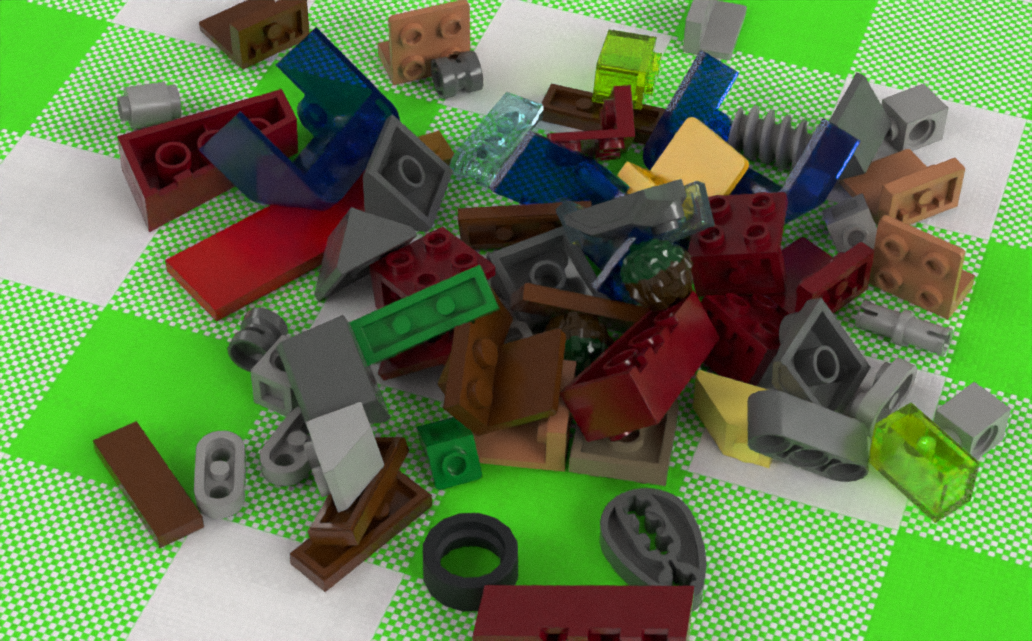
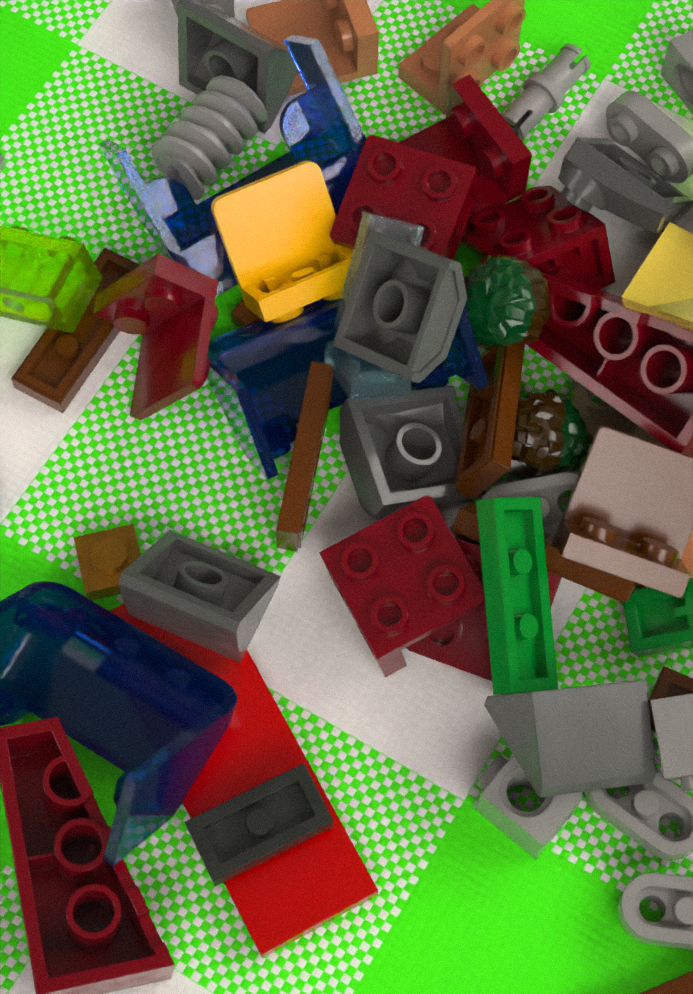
camera: 80 degrees left, 20 degrees up
(247, 235) = (259, 824): none -> pearl dark grey plate
(257, 335) = (438, 829): dark grey wheel -> none
(356, 244) = (348, 675): dark grey slope -> none
(496, 138) = (108, 465): clear light blue plate -> none
(850, 223) = (380, 95): light grey bracket -> none

